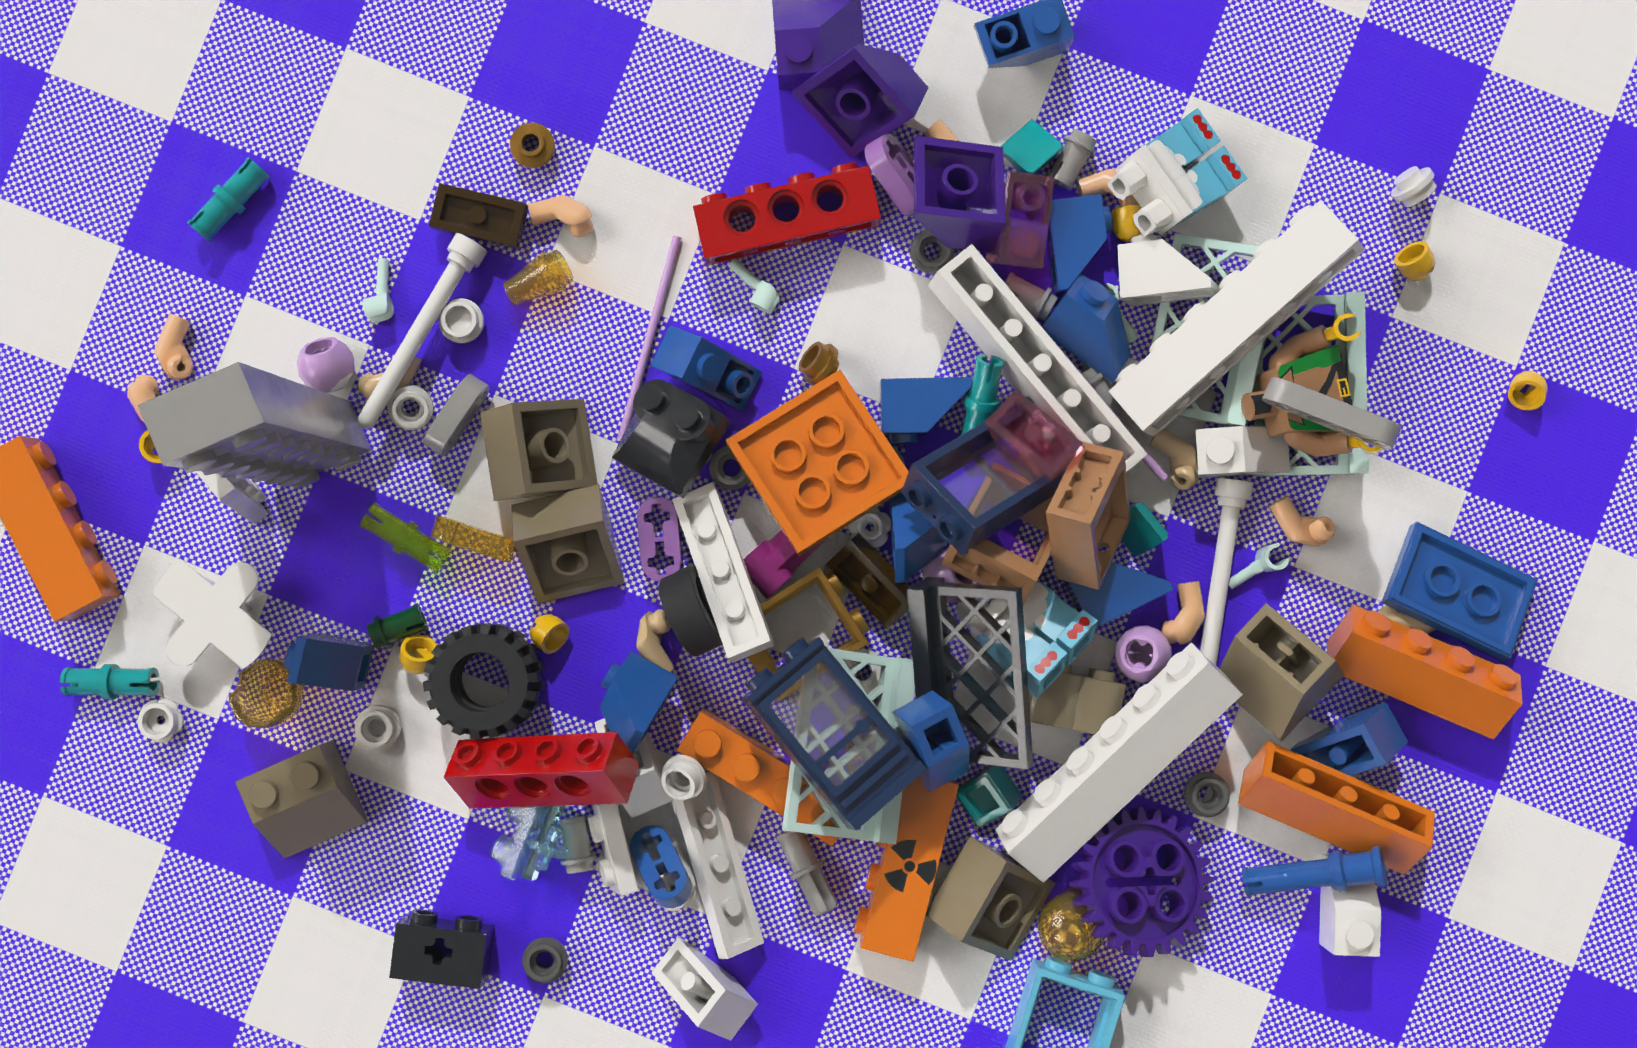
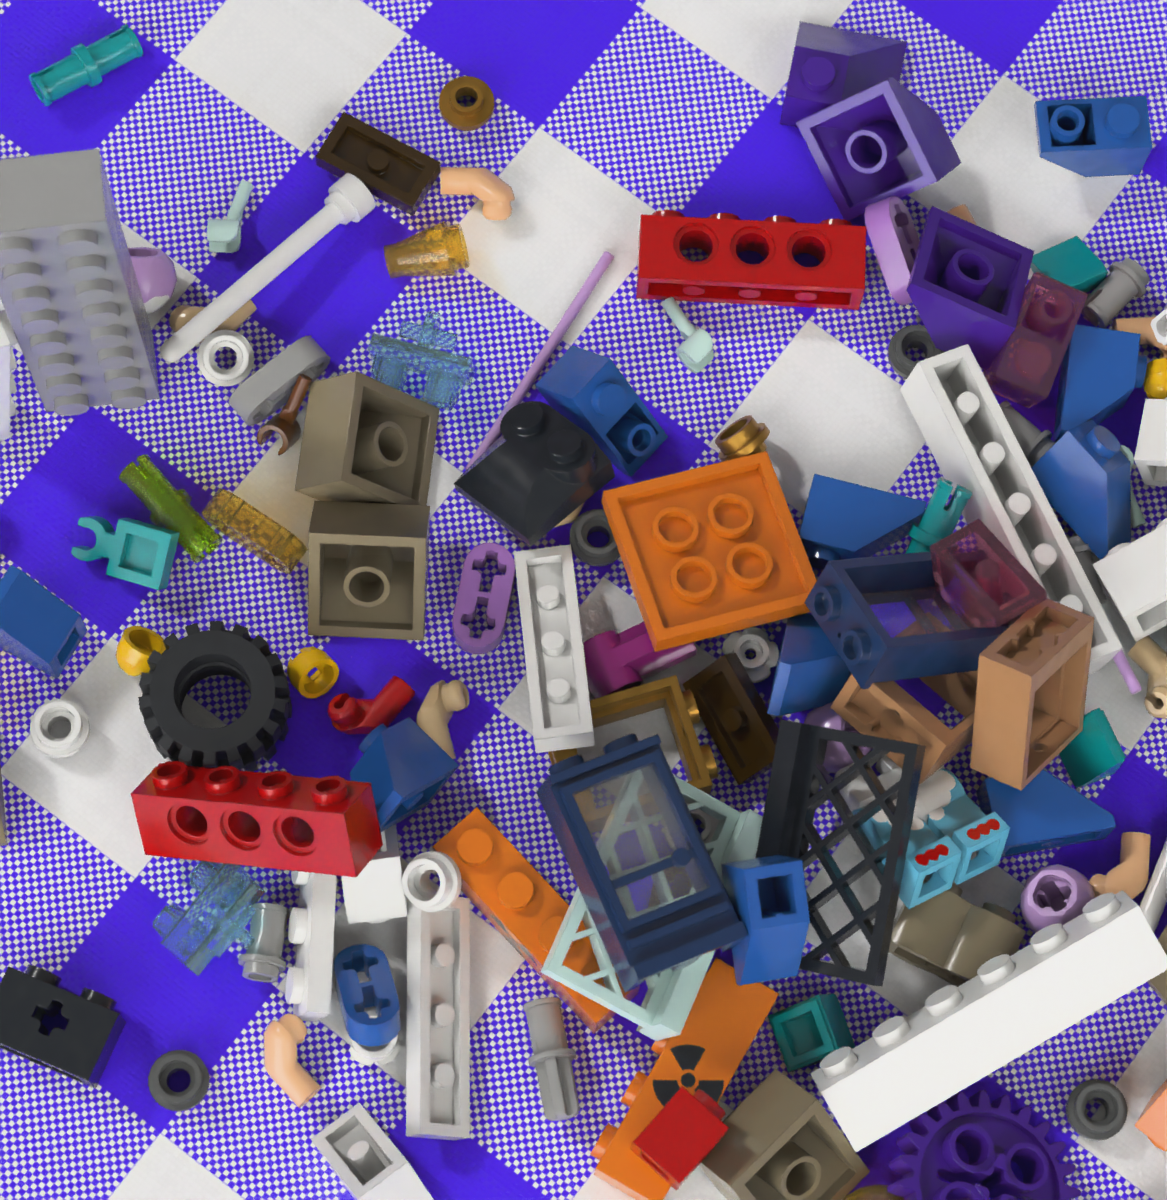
camera: 10 degrees right, 15 degrees down
(388, 577) = (135, 550): none -> teal plate
(396, 626) = (124, 610): dark green pin -> none
(461, 321) = (318, 277): white plate -> none
(471, 446) = (285, 422): none -> reddish brown hand
(538, 374) = (445, 370): none -> clear light blue hips
(602, 652) = (364, 715): none -> red arm
(613, 924) = (281, 1059): none -> light nougat arm
(689, 611) = (501, 684): black tyre -> none
(916, 916) = (681, 1136): none -> red brick

